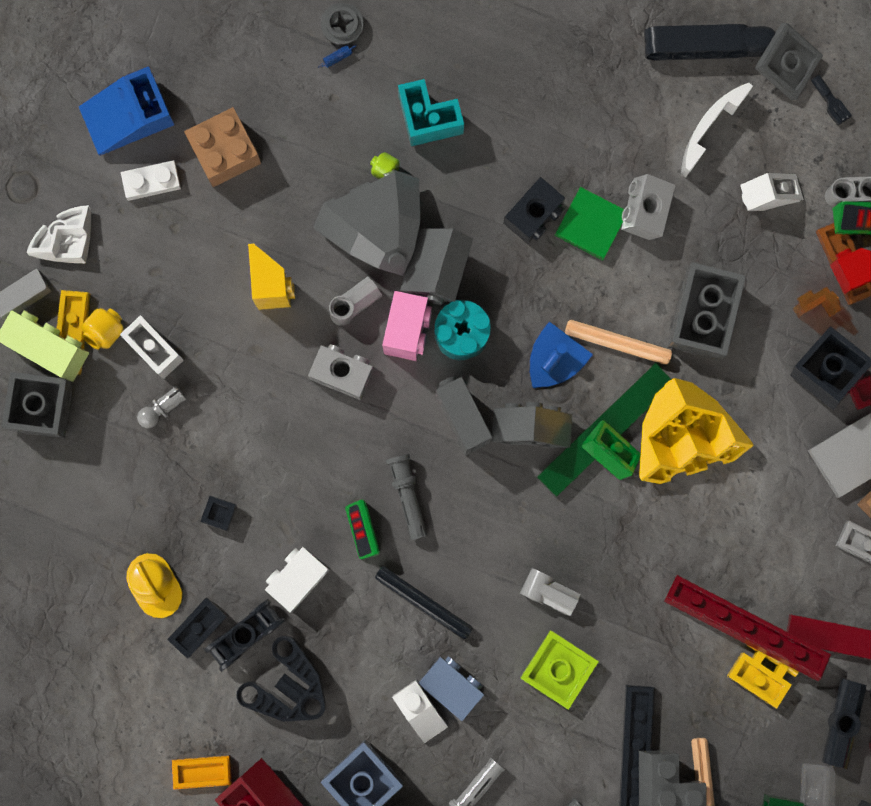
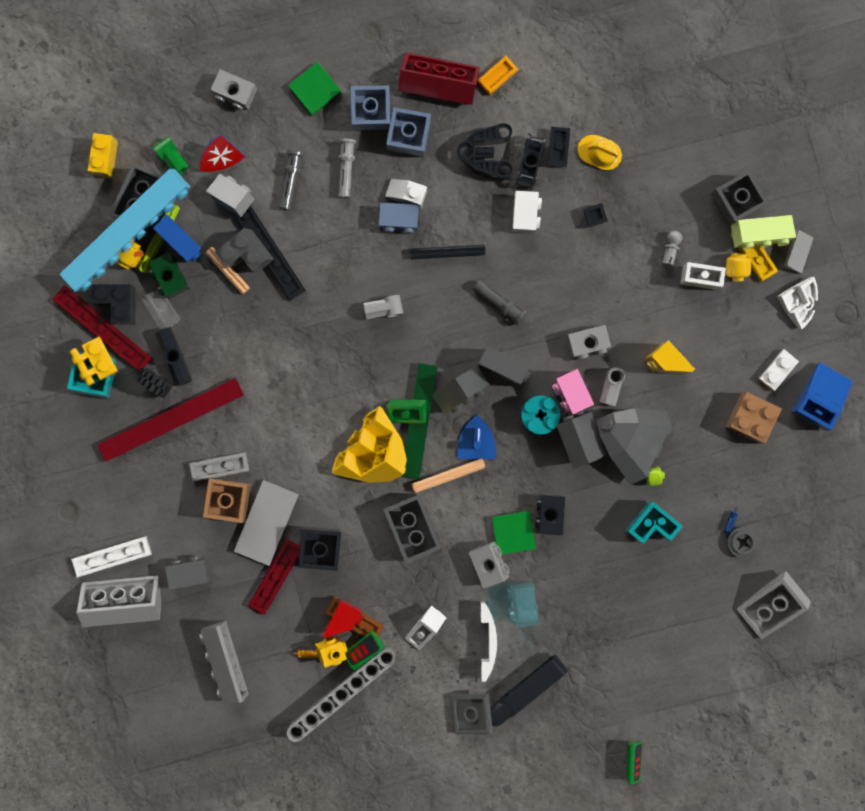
camera: 145 degrees right, 5 degrees up
(362, 529) = (510, 266): slope -> none
(559, 669) = (348, 270): lime plate -> none
(646, 128) = (524, 606): none -> clear light blue brick
(748, 628) = (262, 368): dark red tile -> none
(759, 679) = (236, 346): yellow plate -> none
(810, 300) = (359, 579): clear orange bracket -> none
(835, 107) = (425, 708): black piece -> none

